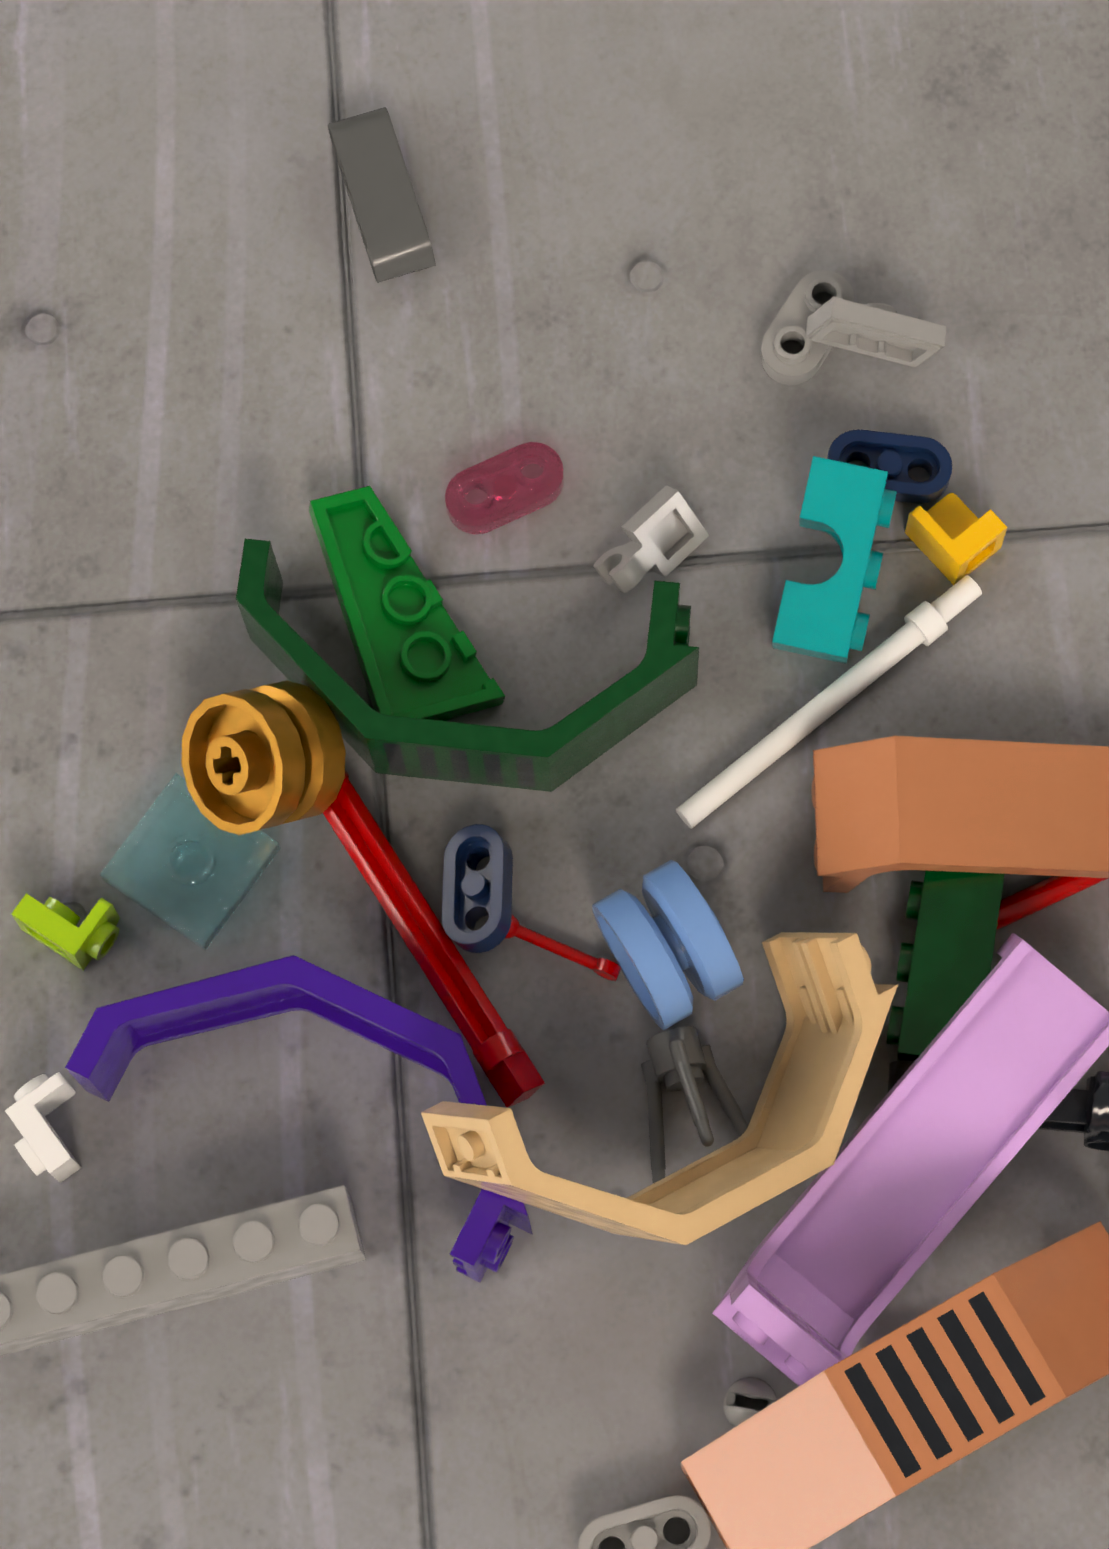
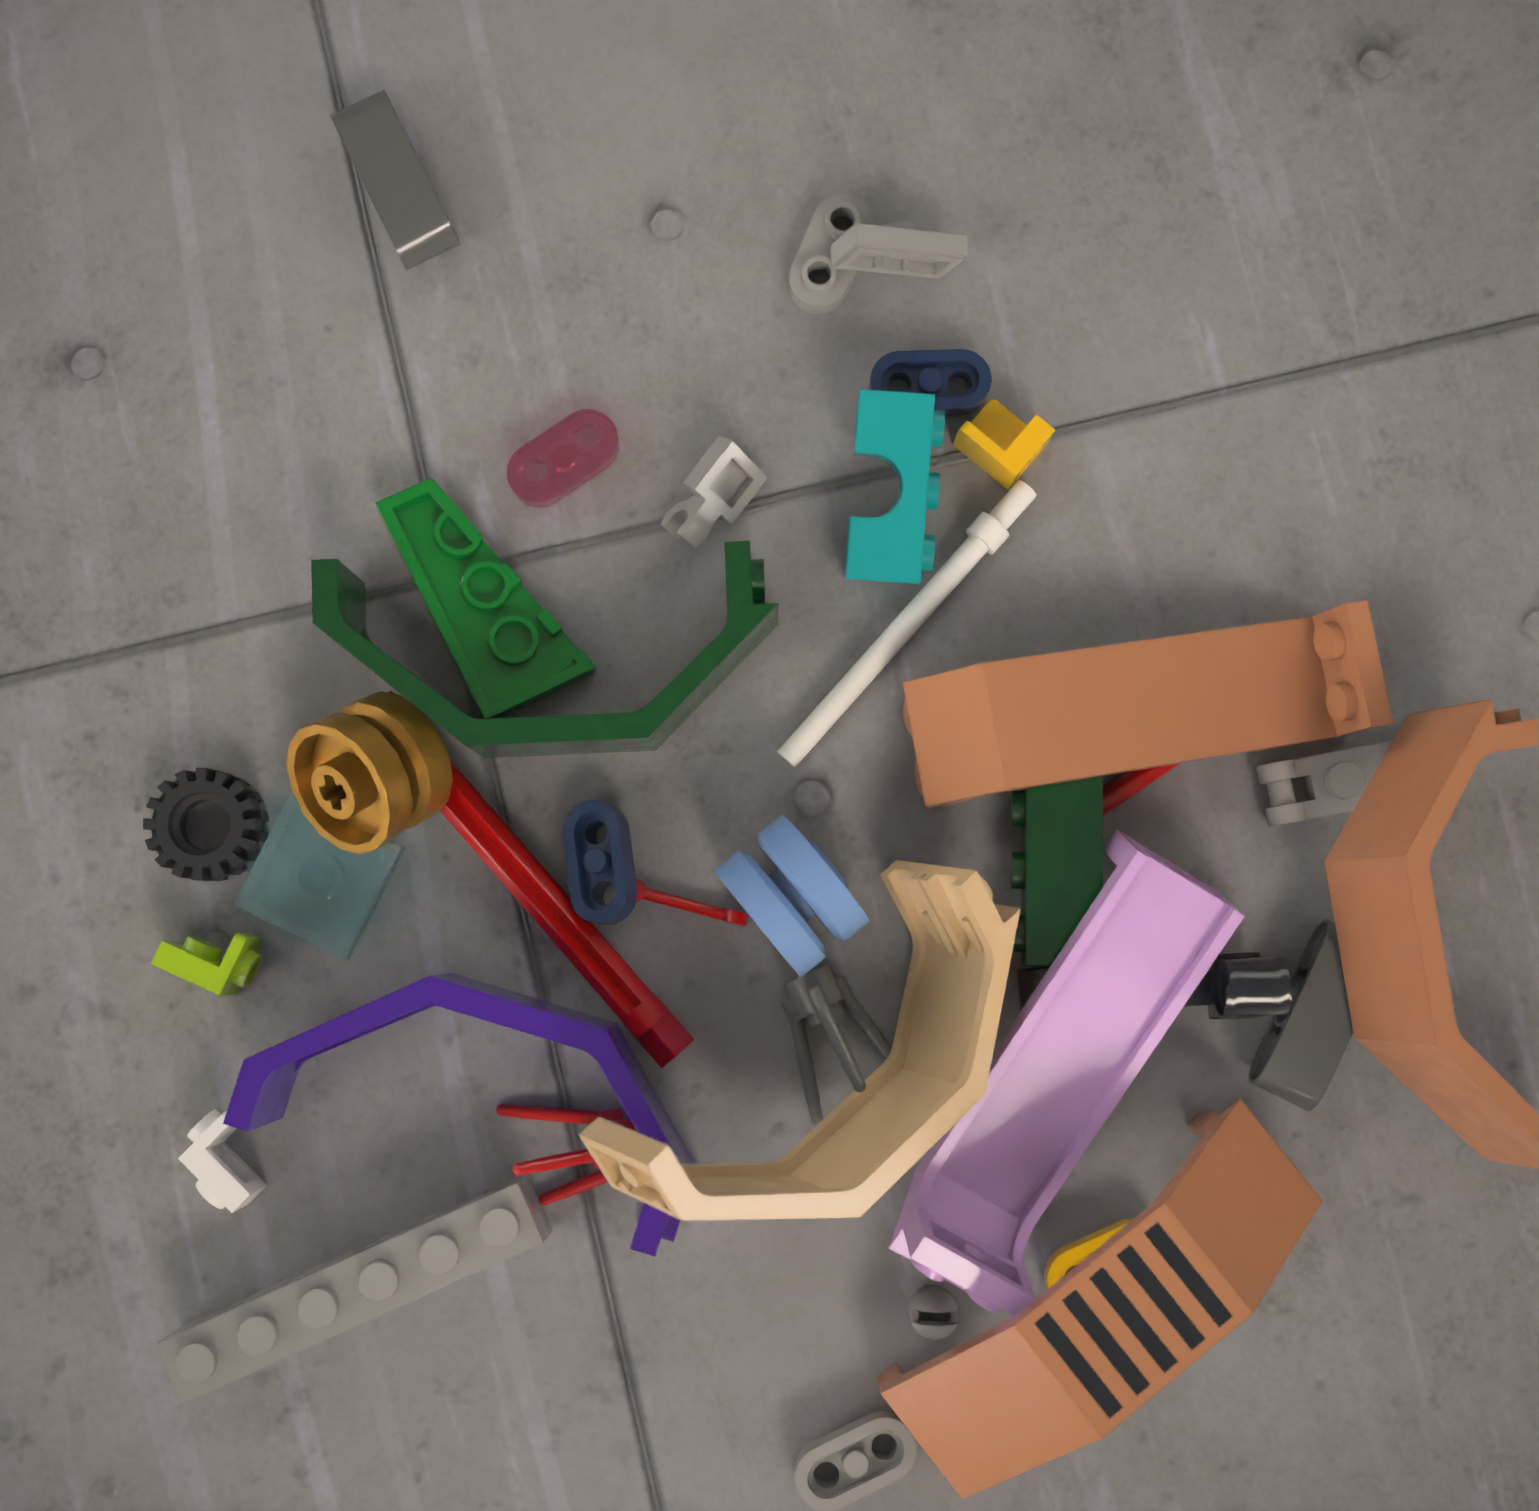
camera: 15 degrees left, 10 degrees up
(73, 758) = (170, 817): none -> black tyre
(447, 1191) = (564, 1159): none -> red plant

